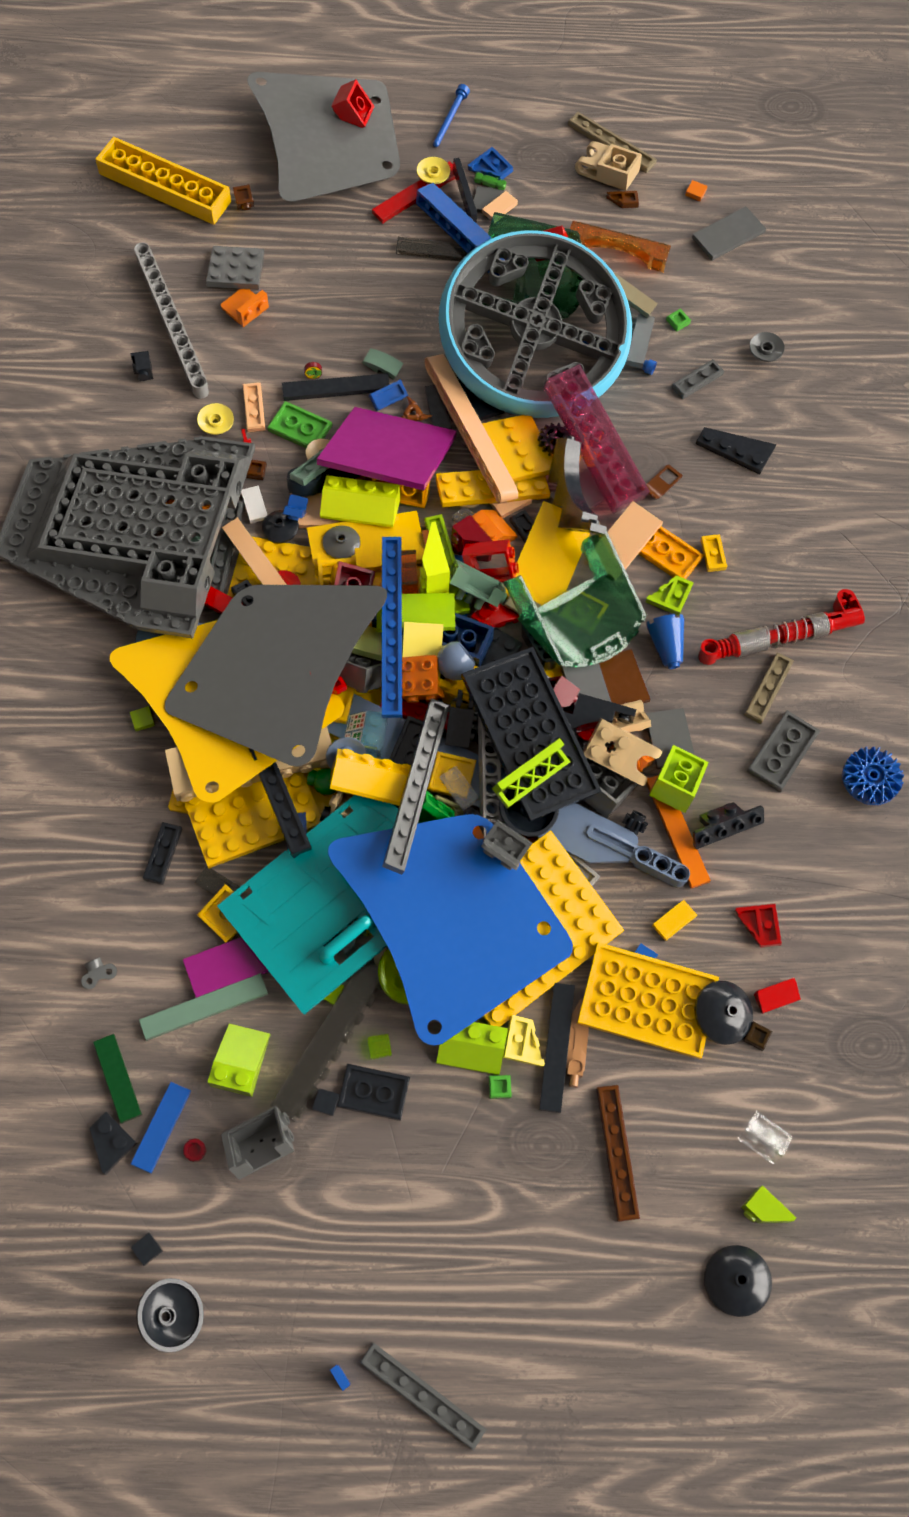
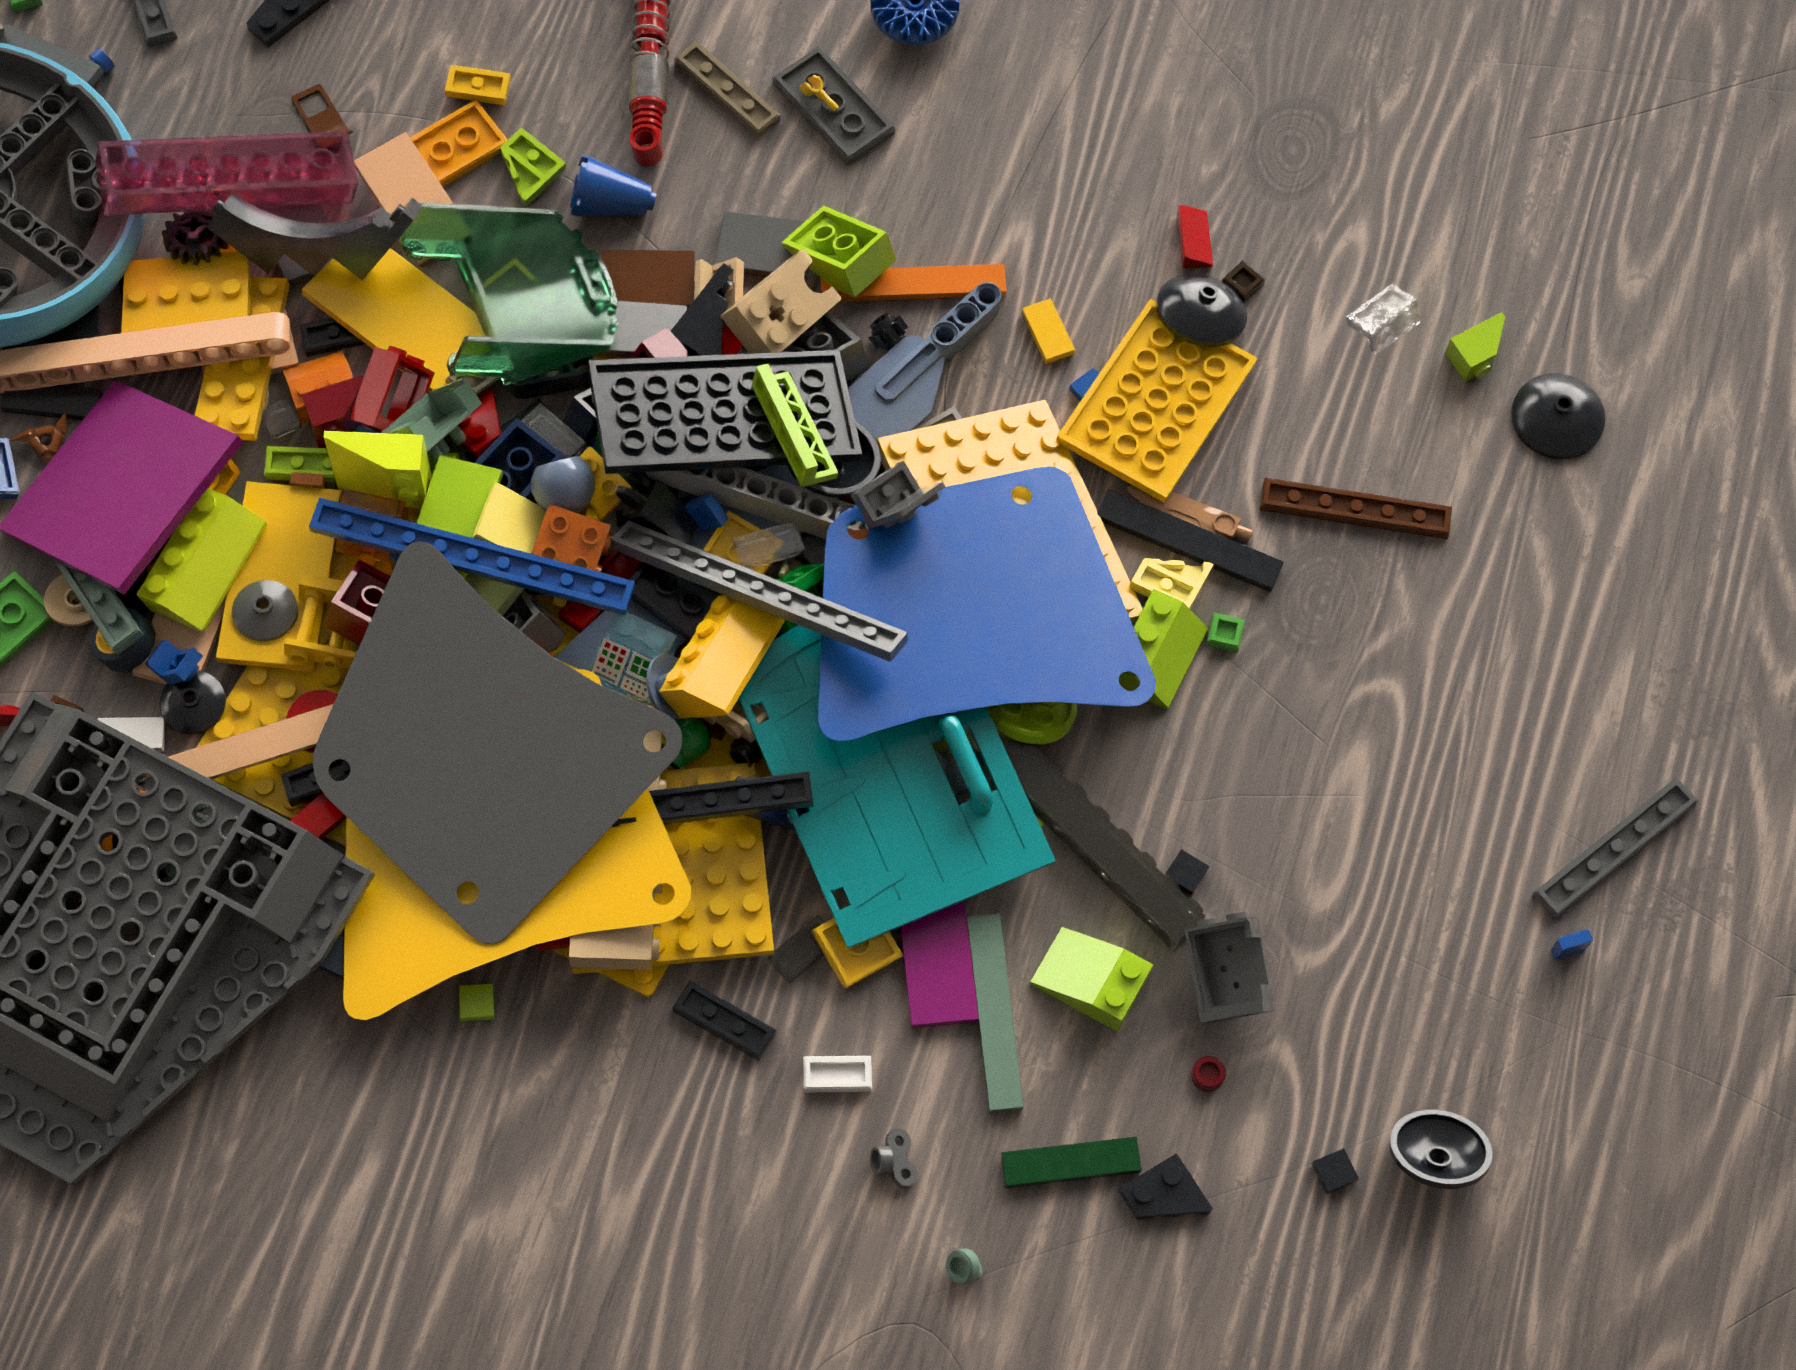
camera: 75 degrees left, 0 degrees up
(36, 1029) = (963, 1266): none -> sand green tile
(144, 925) = (837, 1074): none -> white tile
(161, 1127) = (1162, 1114): blue tile -> none
(373, 1092) = (1188, 803): black tile -> none
(379, 1046) = (1123, 778): clear neon green tile -> none
(470, 747) = (706, 512): none -> blue plate
(500, 648) = (554, 431): none -> clear tile
(726, 822) = (922, 214): black bracket -> none
(761, 923) = (1087, 220): red wing -> none
(784, 738) = (817, 84): none -> yellow hand

